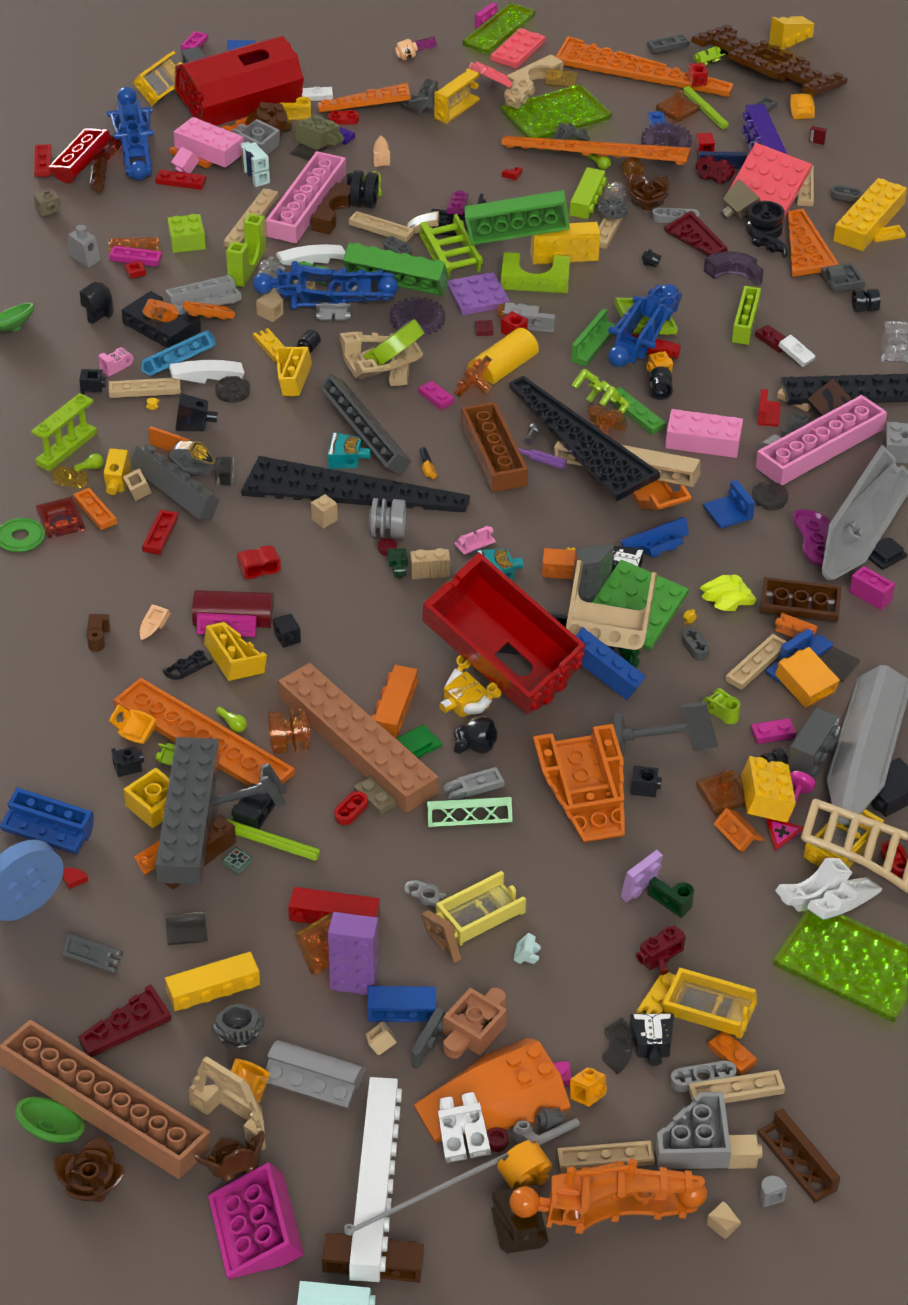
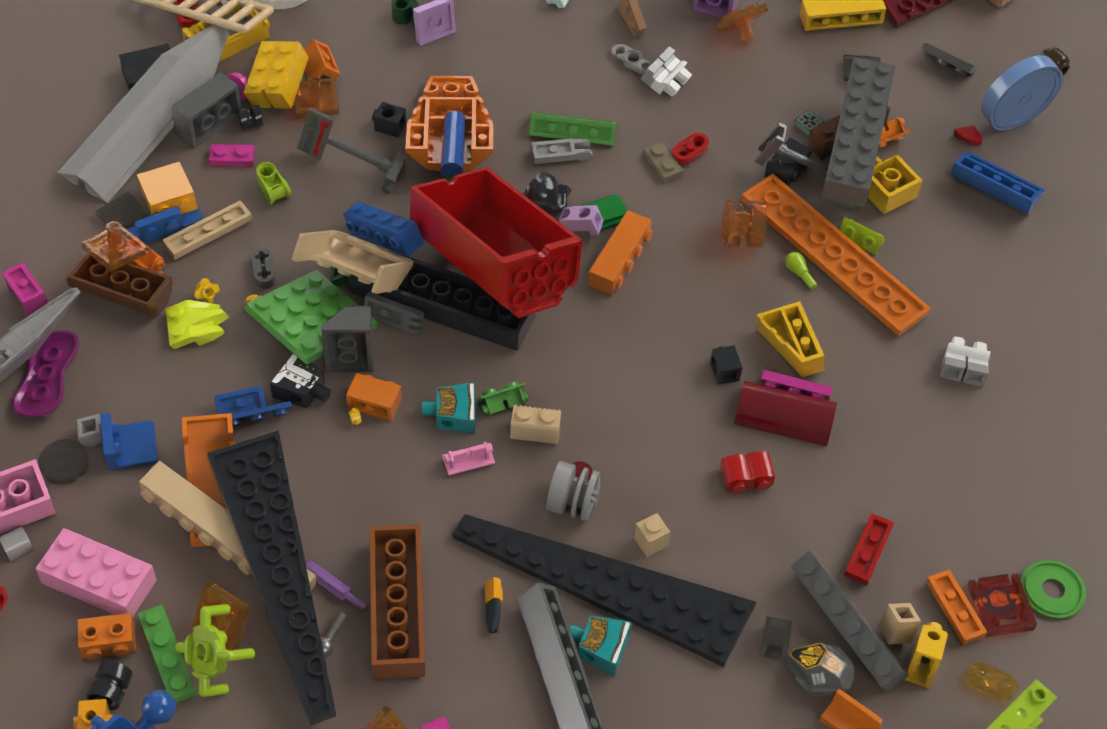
camera: 170 degrees left, 10 degrees up
(83, 665) = (966, 360): none -> hips
(94, 461) = (959, 693): lime piece -> none
(95, 631) = (950, 412): reddish brown leg -> none
(127, 761) = (916, 238): black brick -> none
(136, 724) = (905, 271): light orange piece -> none
(154, 620) = (882, 410): light nougat plate -> none
(183, 665) = (850, 344): black piece -> none
(276, 841) = (762, 129): lime axle -> none
(312, 905) = (724, 55): red brick -> none
(359, 737) = (675, 220): nougat brick -> none
(390, 876) = (664, 70): none -> white hips
(398, 560) = (573, 443): dark green plate -> none
(437, 718) = (582, 219): none -> lavender leg
(481, 907) = (589, 32): light yellow door -> none
(572, 751) = (453, 144): none -> blue brick
(681, 401) = (106, 636): none -> orange brick
(731, 614) = (202, 286): none -> yellow plate
(763, 512) = (90, 430): none -> light grey brick
(817, 610) = (114, 247): none -> clear orange plate

